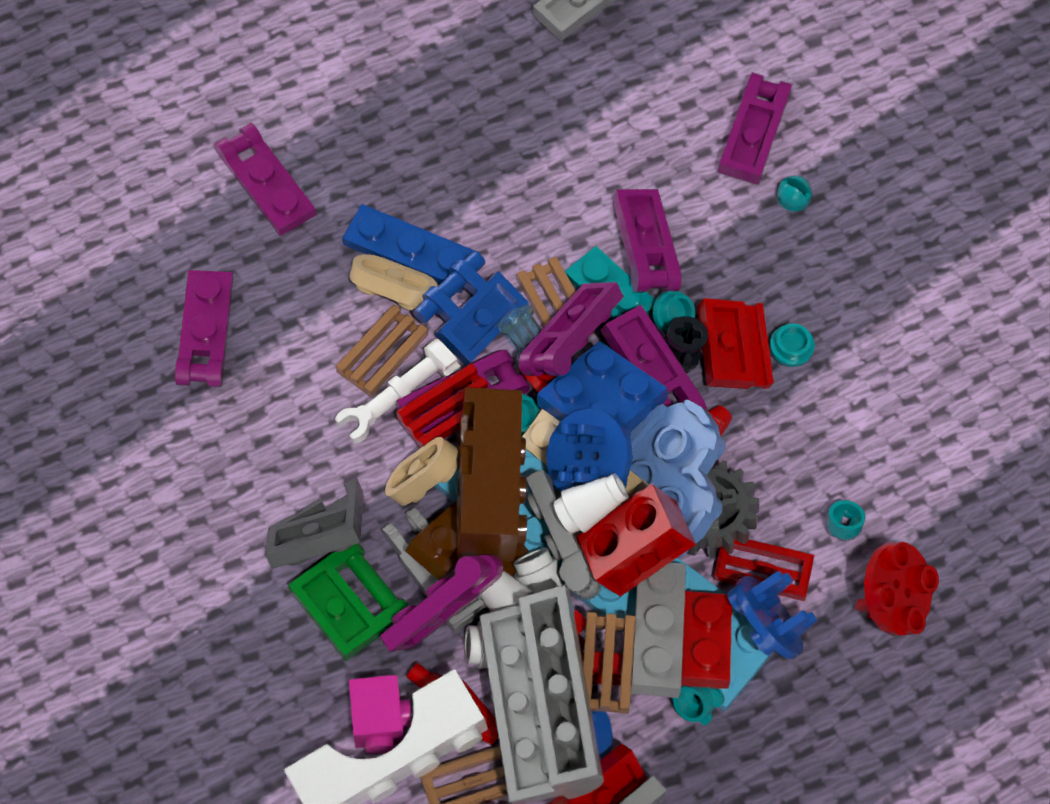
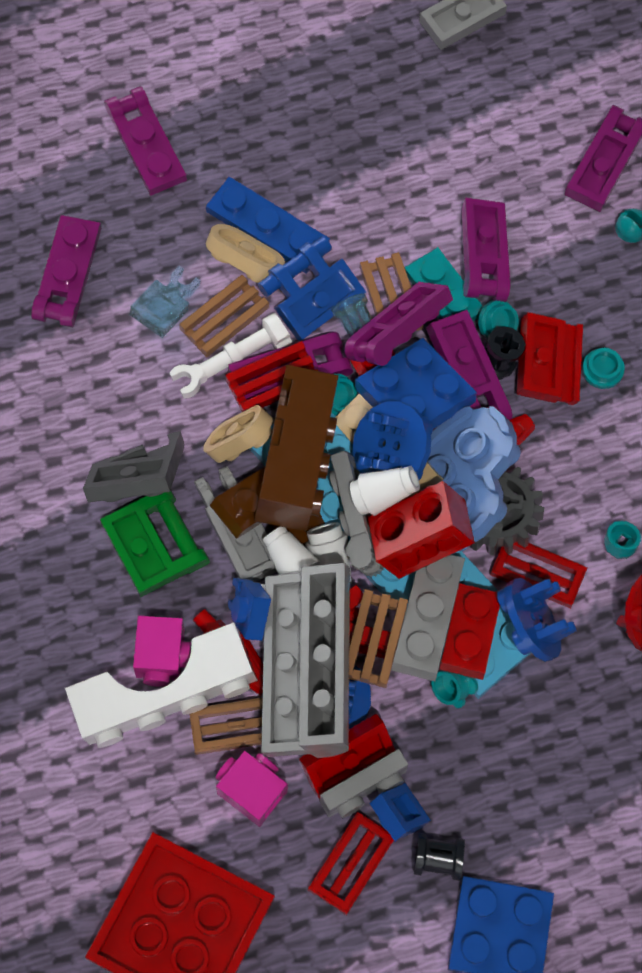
camera: 10 degrees right, 5 degrees up
(315, 349) = (164, 305): none -> clear light blue plate
(443, 601) = (236, 557): magenta plate -> none
(468, 652) = (249, 608): none -> blue plate

